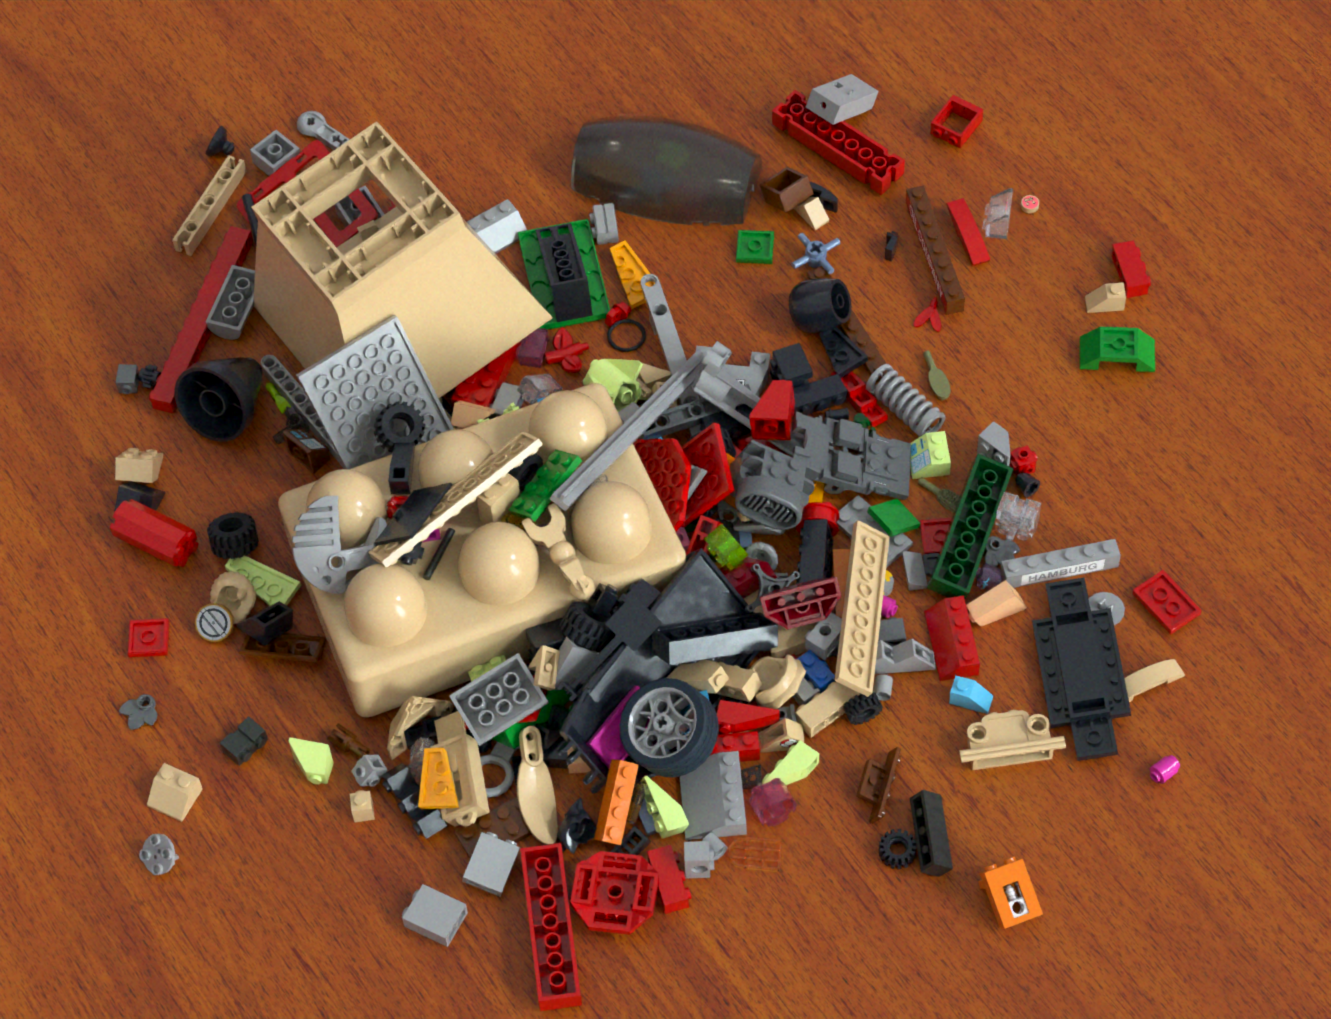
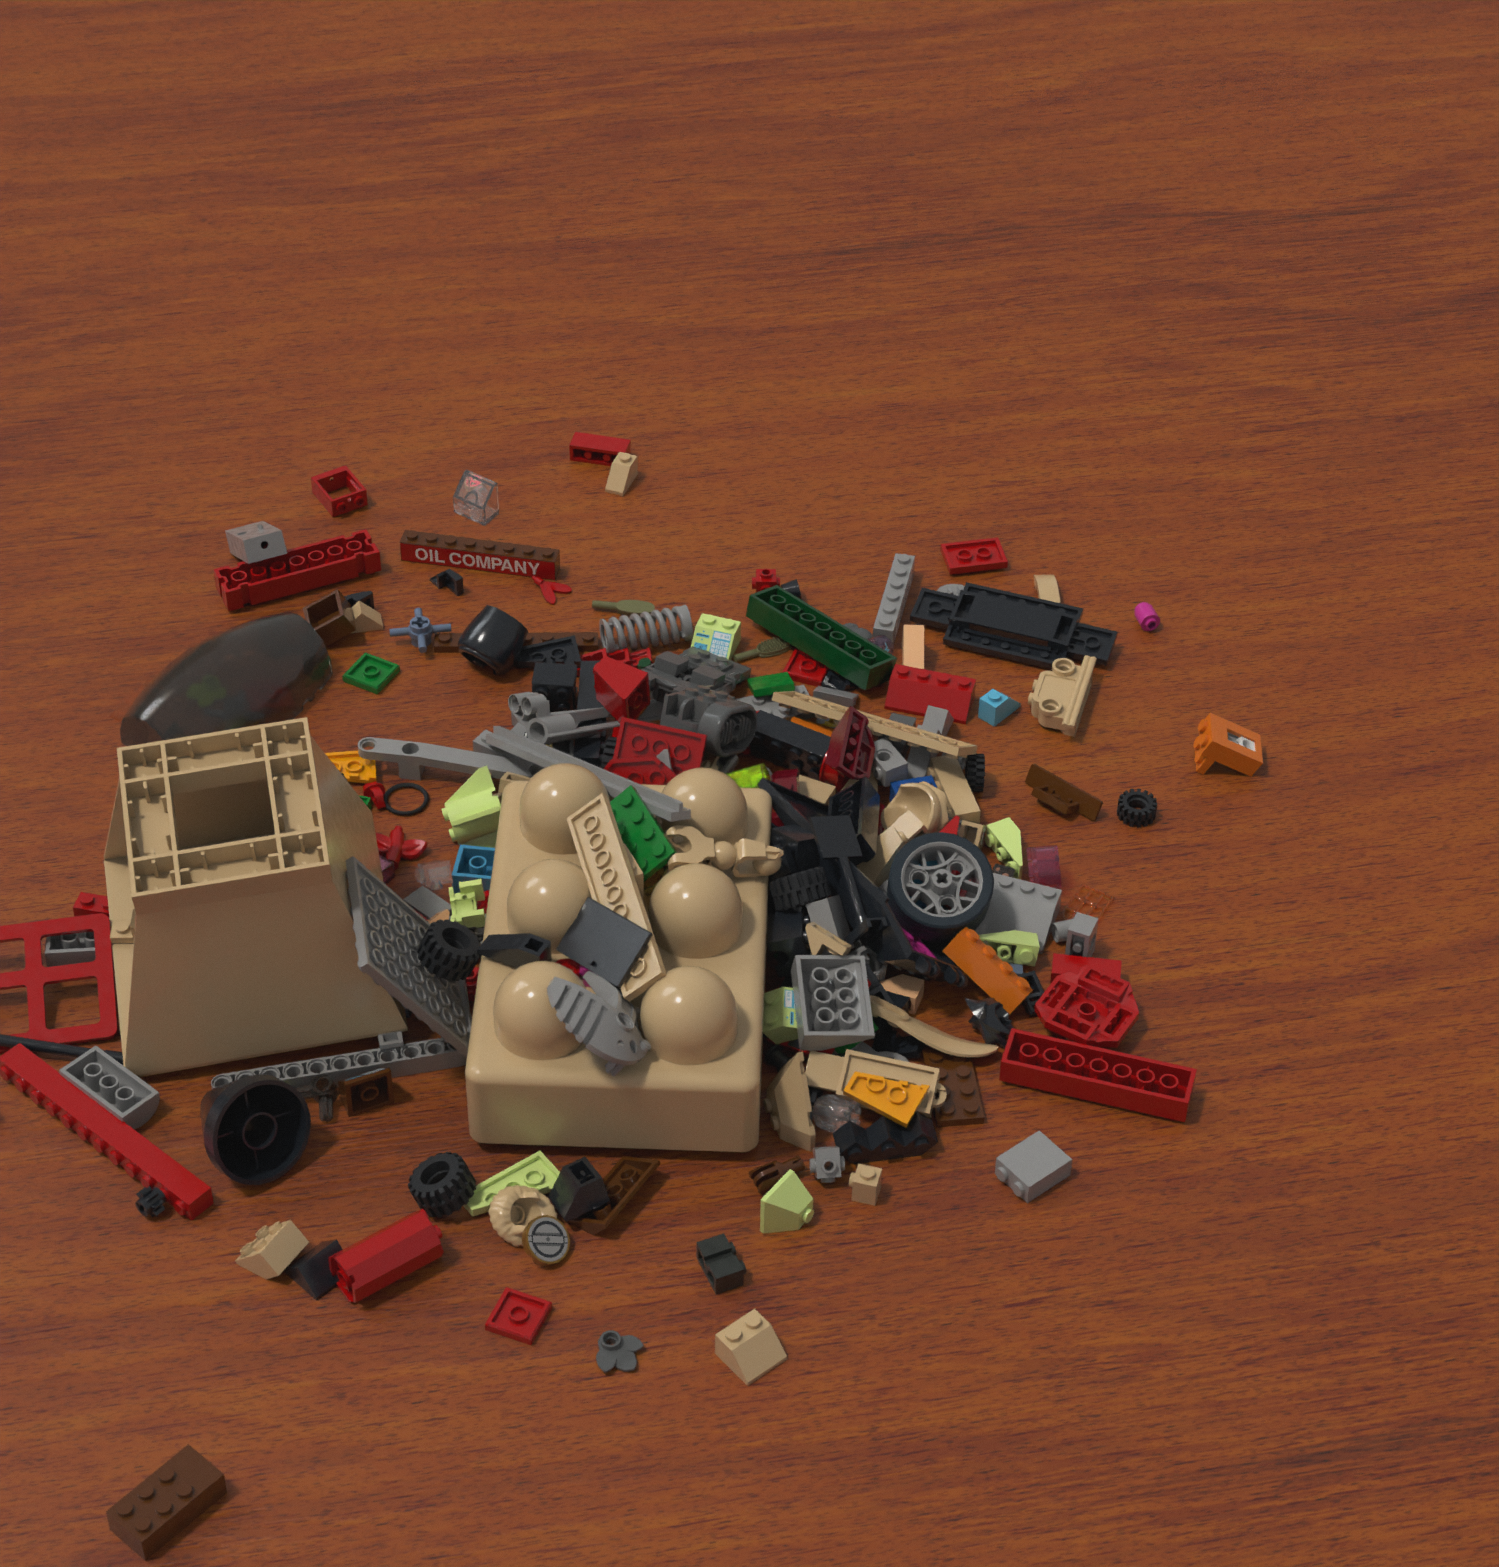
camera: 70 degrees left, 15 degrees down
(127, 378) = (136, 1224): dark grey brick -> none
(158, 854) = (839, 1378): light grey plate -> none
(491, 863) = (1000, 1097): light grey brick -> none
(768, 584) = (817, 775): dark grey piece -> none
(931, 833) = (1136, 776): pearl dark grey brick -> none
(968, 232) = (475, 527): red slope -> none
(994, 444) = (739, 585): light grey slope -> none
(1017, 517) = (832, 598): clear brick -> none
(1117, 345) = (679, 486): green slope -> none

